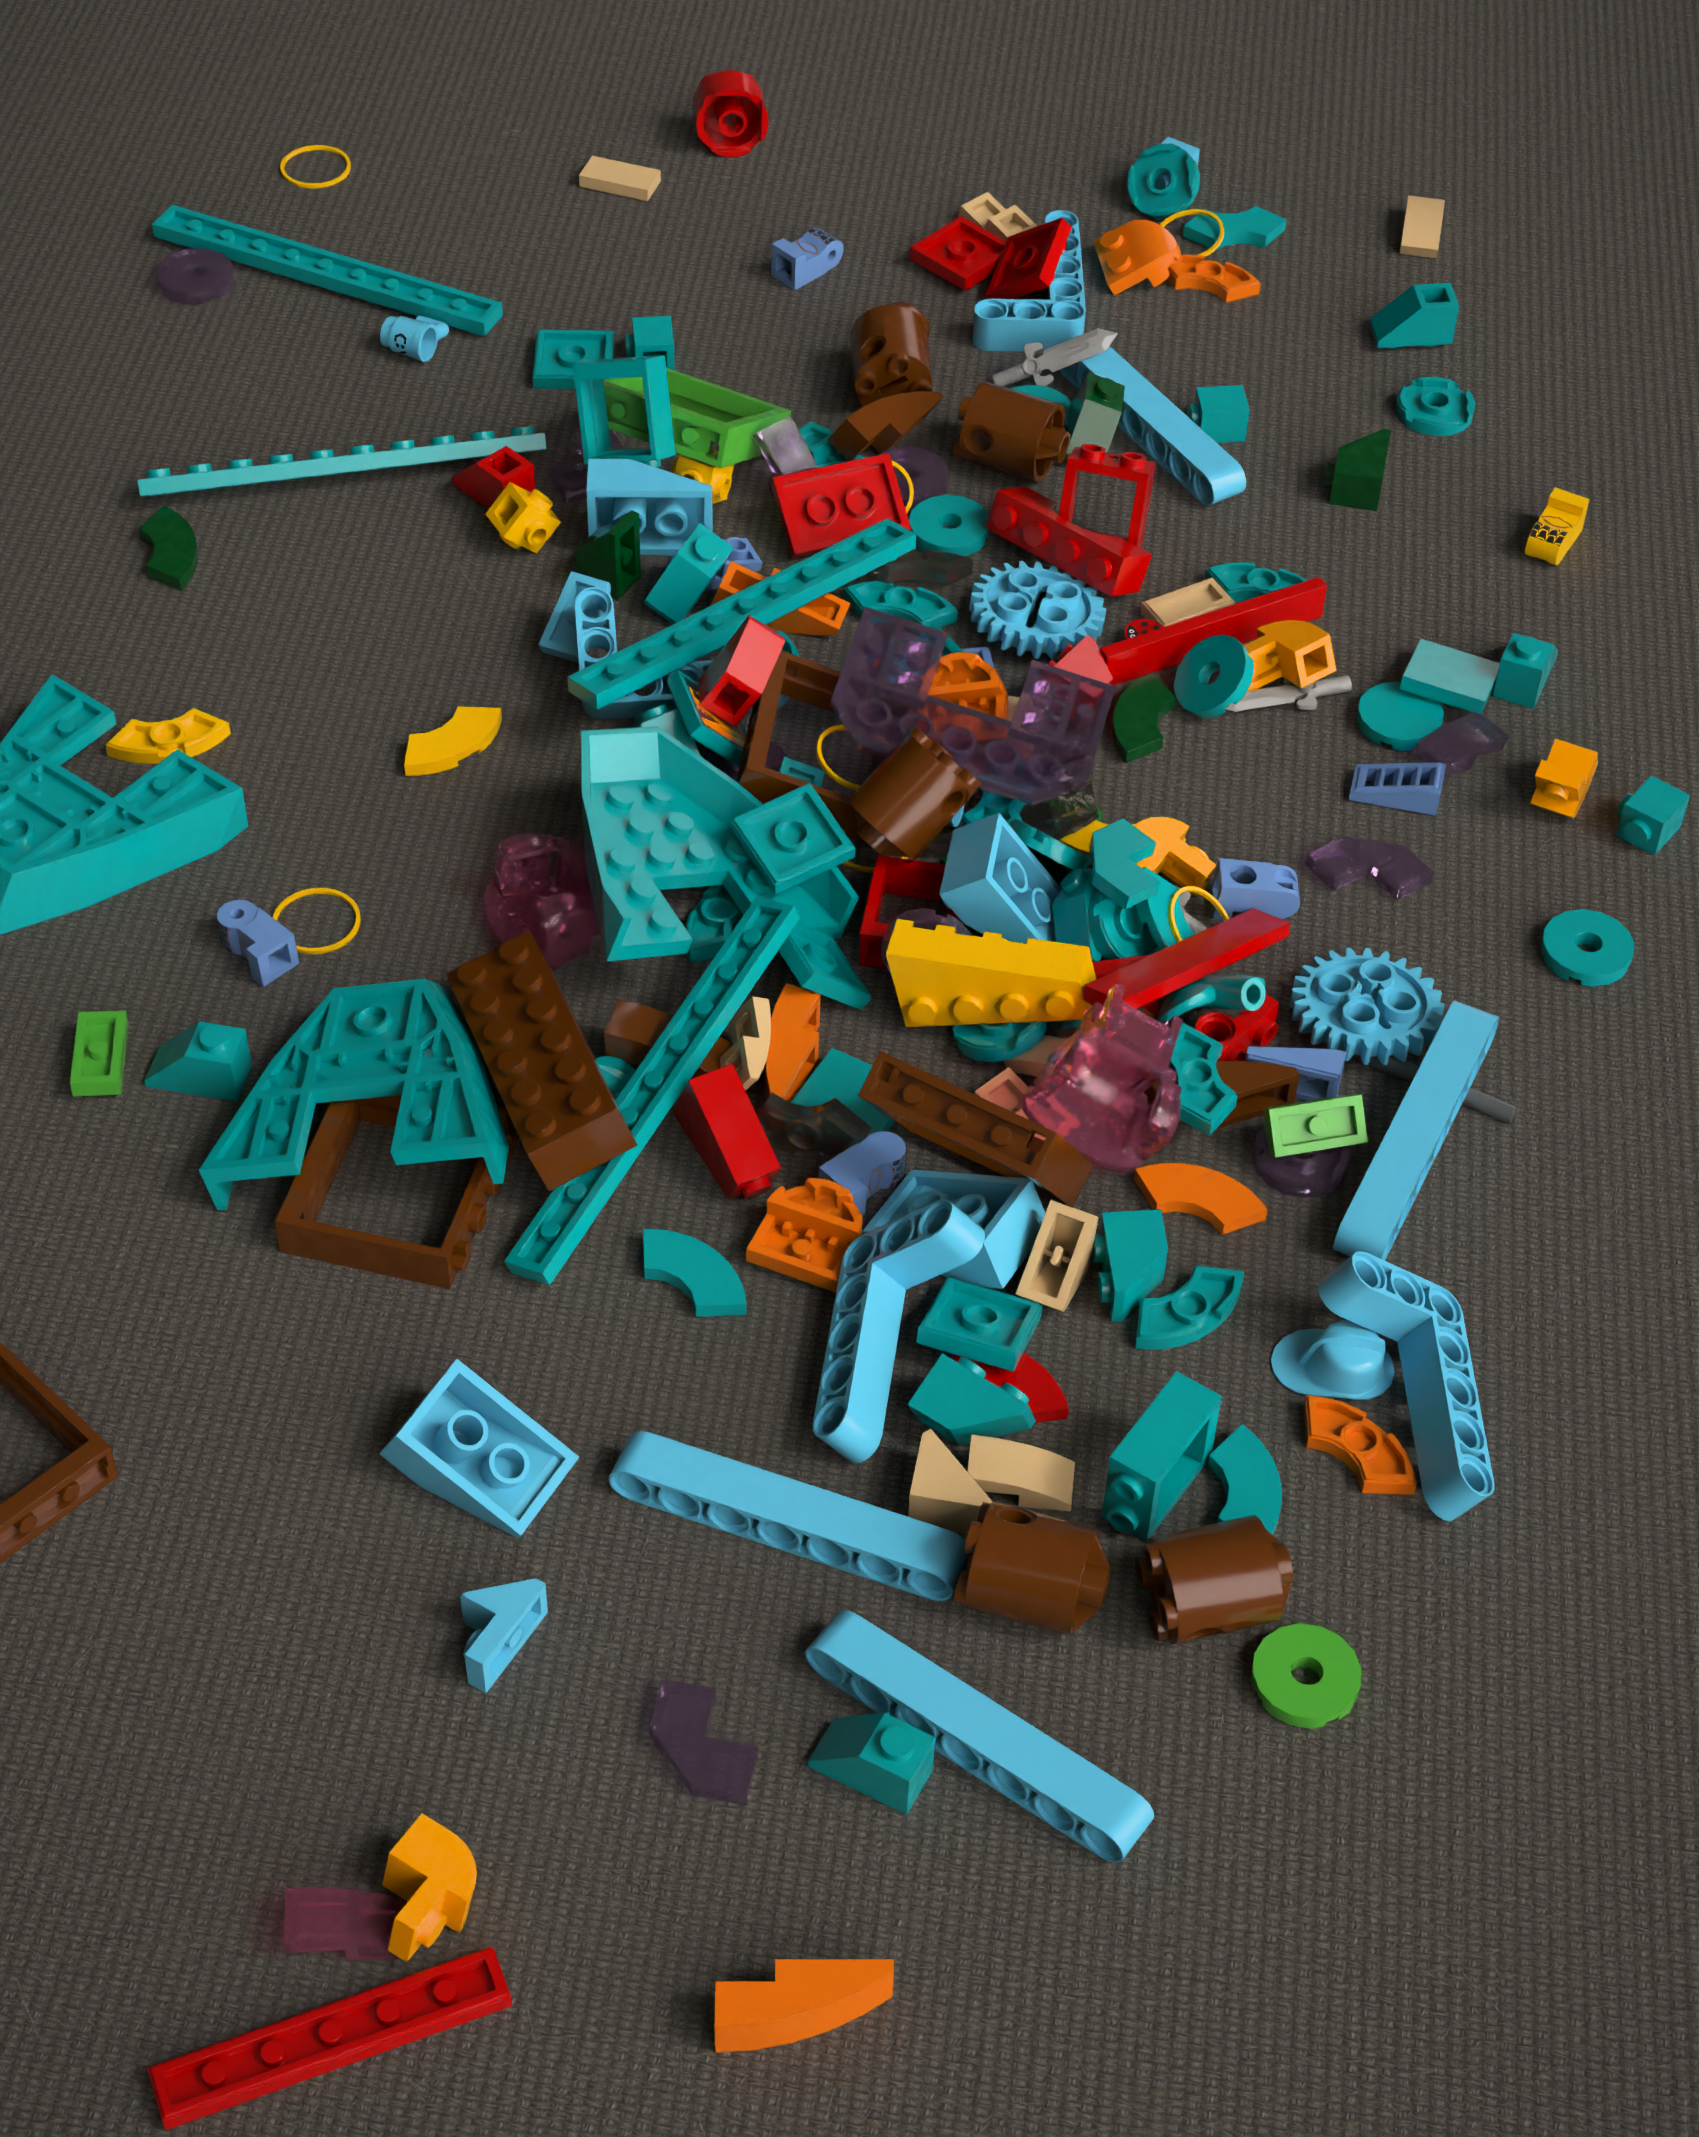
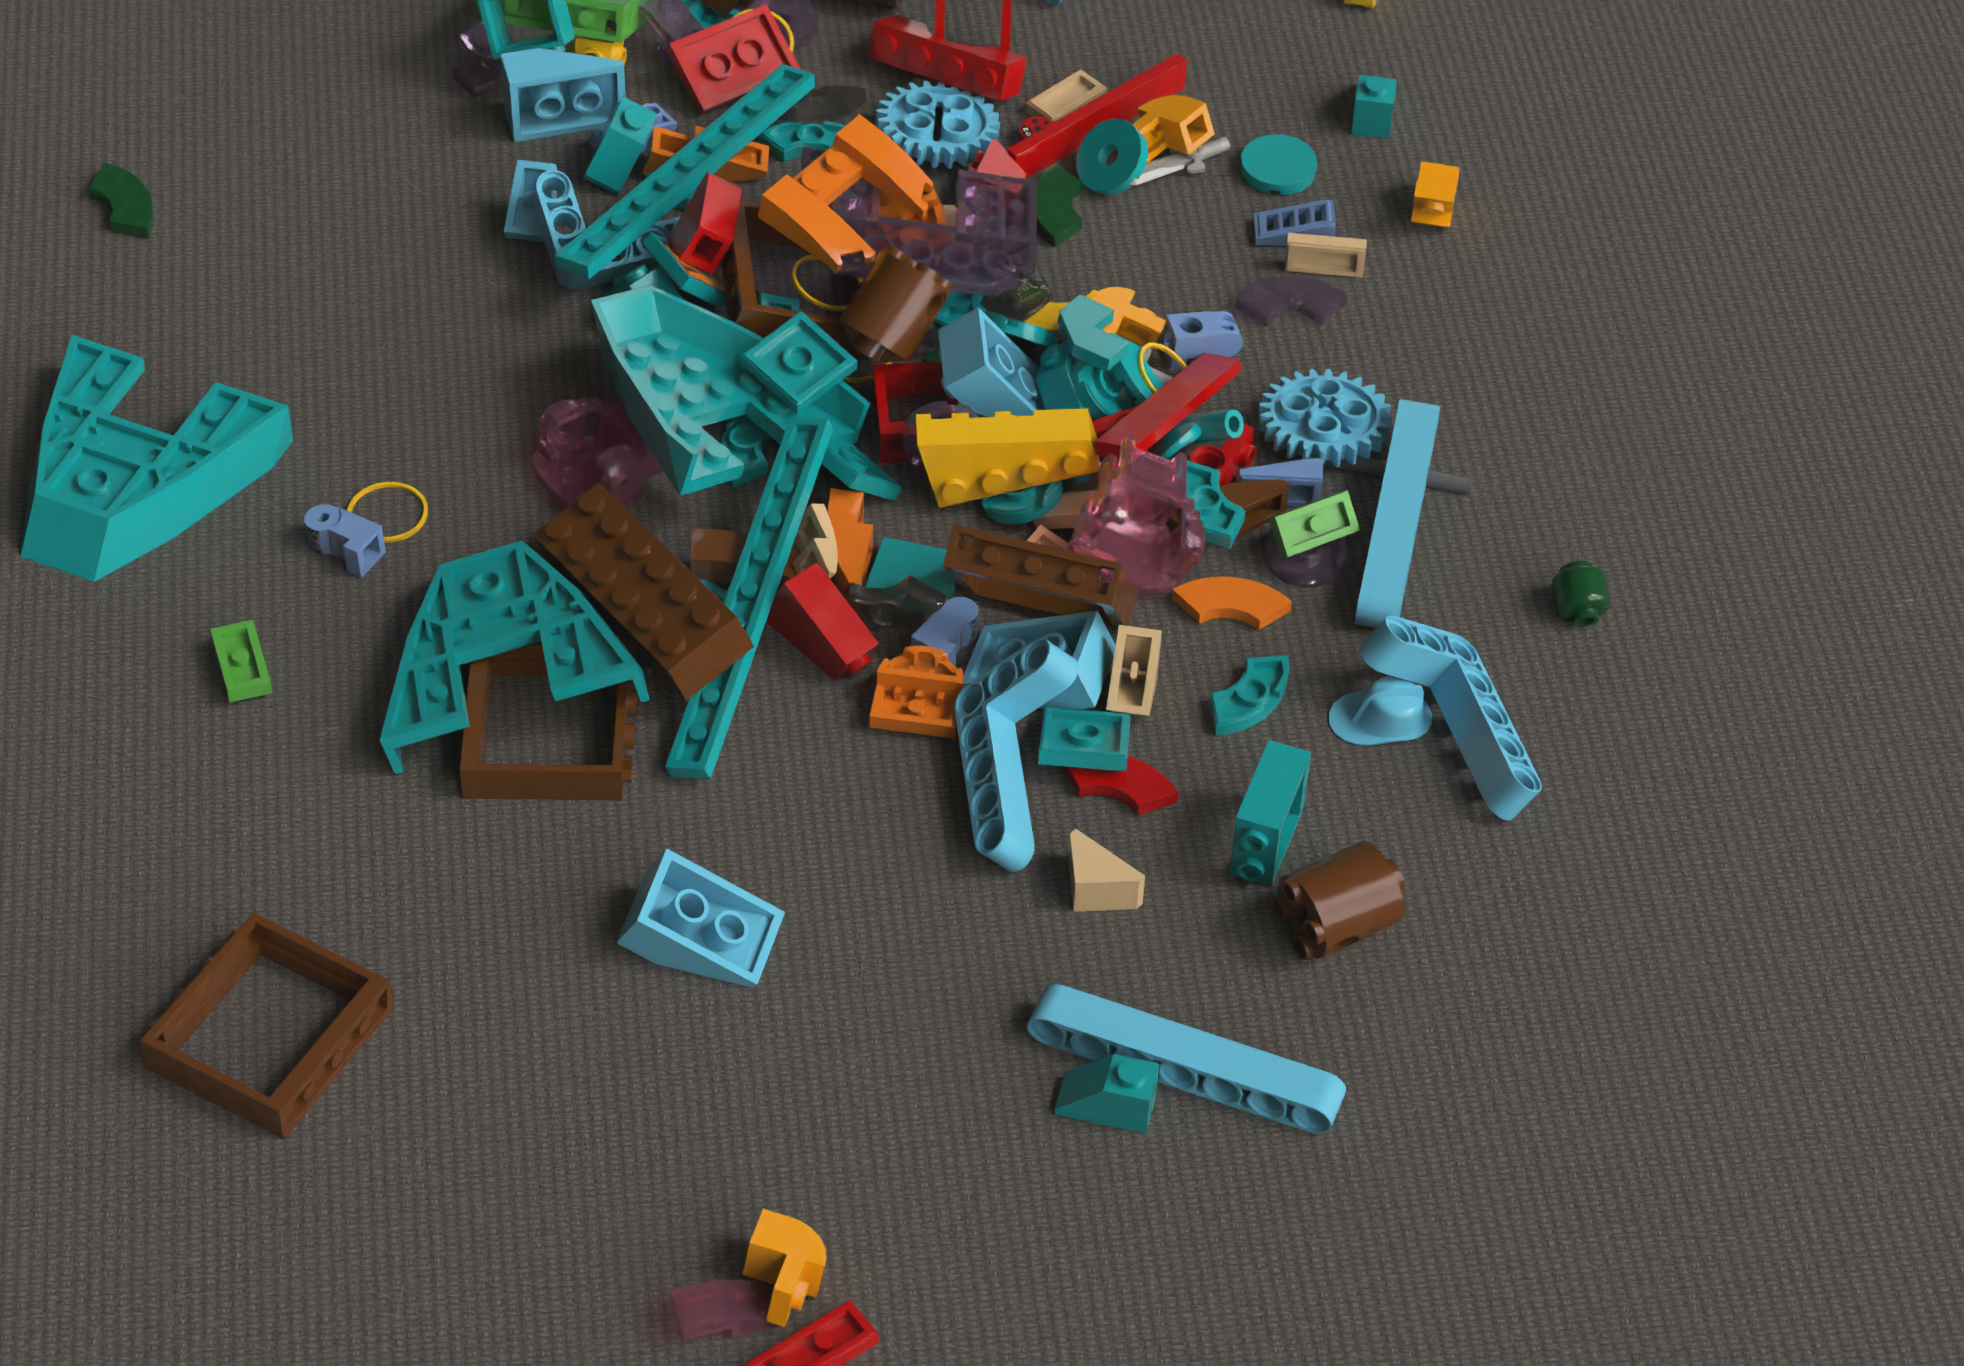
camera: 15 degrees left, 0 degrees up
(154, 741) = (190, 376): yellow tile -> none
(203, 1062) = (336, 651): teal slope -> none
(324, 463) = (242, 98): teal plate -> none
(461, 736) = (458, 328): yellow tile -> none
(491, 475) = (412, 88): red slope -> none
(503, 1623) = (768, 1053): medium azure slope -> none
(523, 517) = (448, 118): yellow brick -> none
(612, 554) = (541, 135): dark green slope -> none
(695, 1270) = (828, 743): teal tile -> none
(705, 1764) = (973, 1129): clear purple tile -> none
(790, 1515) = (976, 922): medium azure beam -> none
(800, 2003) = (1109, 1287): orange slope -> none
(840, 668) = (801, 203): none -> orange wedge
(949, 510) = (834, 46): teal tile -> none
(962, 1403) = (1099, 804): teal slope -> none
(1024, 1470) = (1160, 848): tan slope -> none
(1033, 1568) = (1195, 920): reddish brown cylinder -> none
(1132, 1258) = (1193, 662): teal slope -> none
(1246, 582) = (1113, 68): teal tile -> none
(1248, 1478) = (1338, 816): teal tile -> none
(1309, 1648) = (1437, 941): bright green tile -> none
(1361, 1444) = (1409, 769): orange tile -> none
(1421, 823) = (1325, 255): none -> tan tile
(1450, 676) = (1313, 122): teal tile -> none
(1461, 742) = (1338, 178): clear purple slope -> none
(1589, 928) = (1494, 319): teal tile -> none
(1606, 1265) = (1580, 593): none -> dark green head
(1651, 814) = (1515, 213): teal brick -> none

